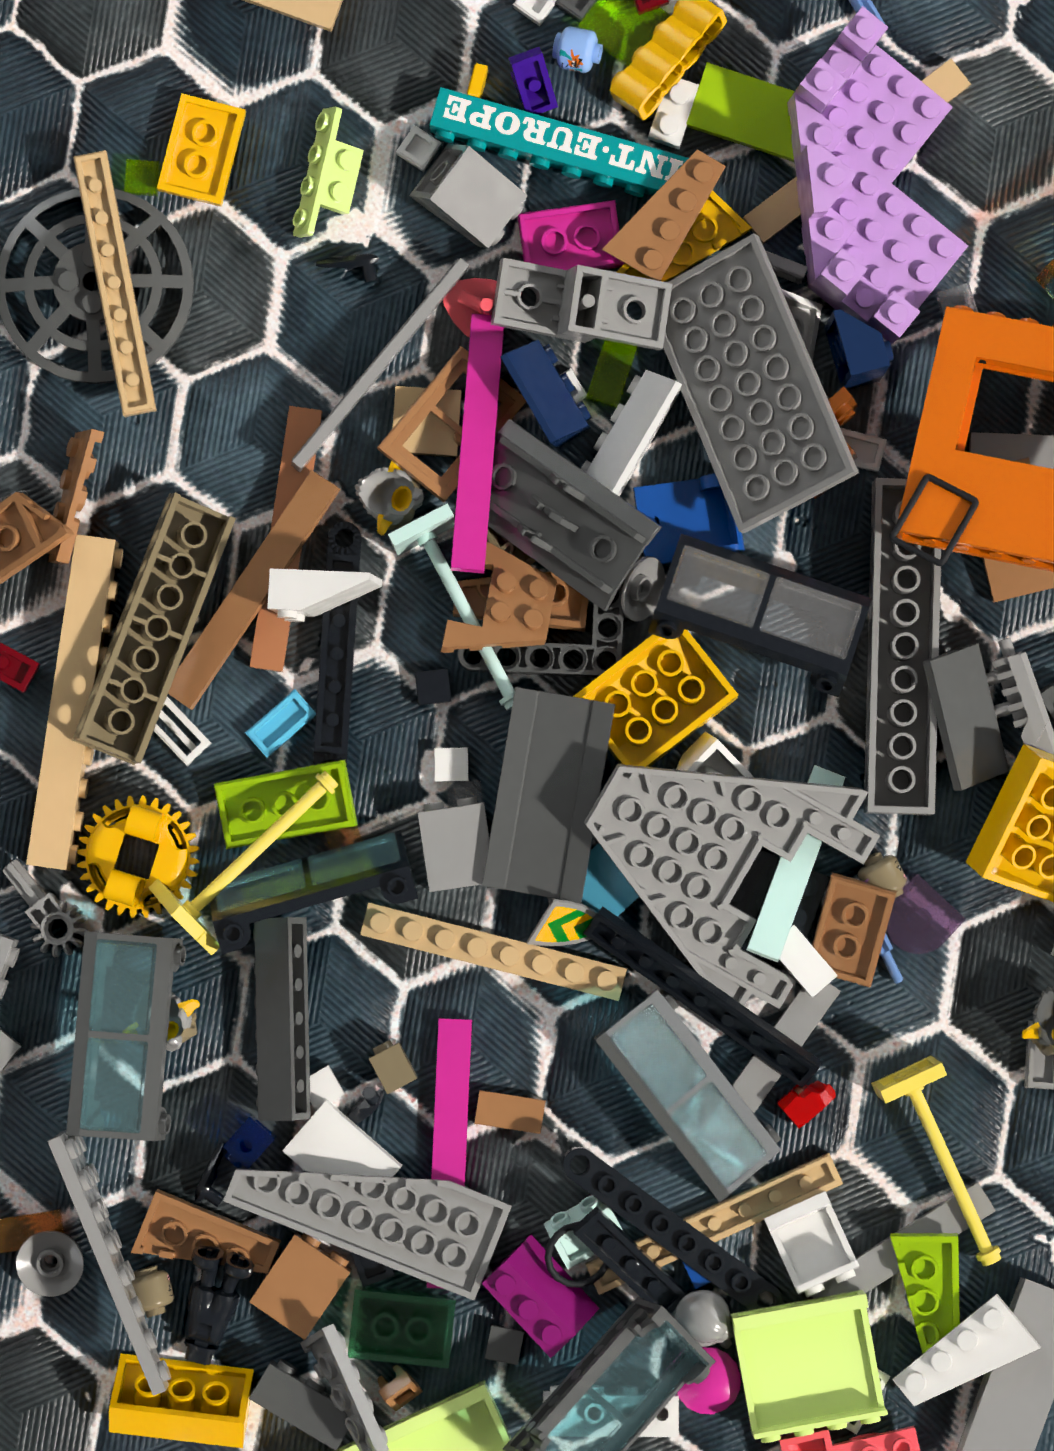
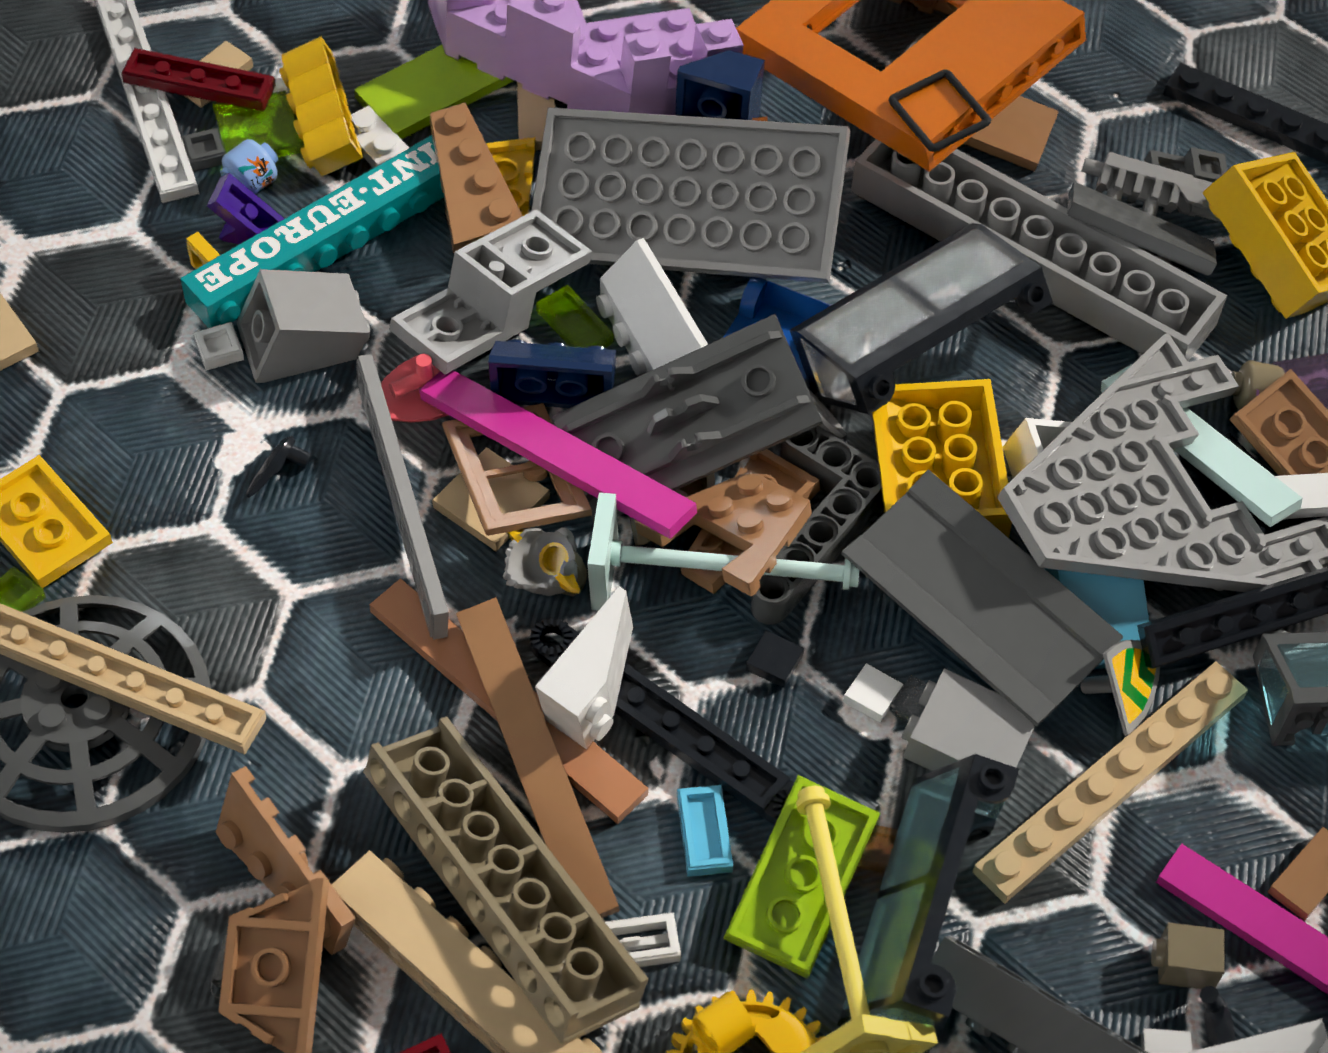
camera: 55 degrees left, 30 degrees down
(330, 174) = (169, 429): yellowish green bracket -> none
(570, 236) = (411, 275): dark pink tile -> none

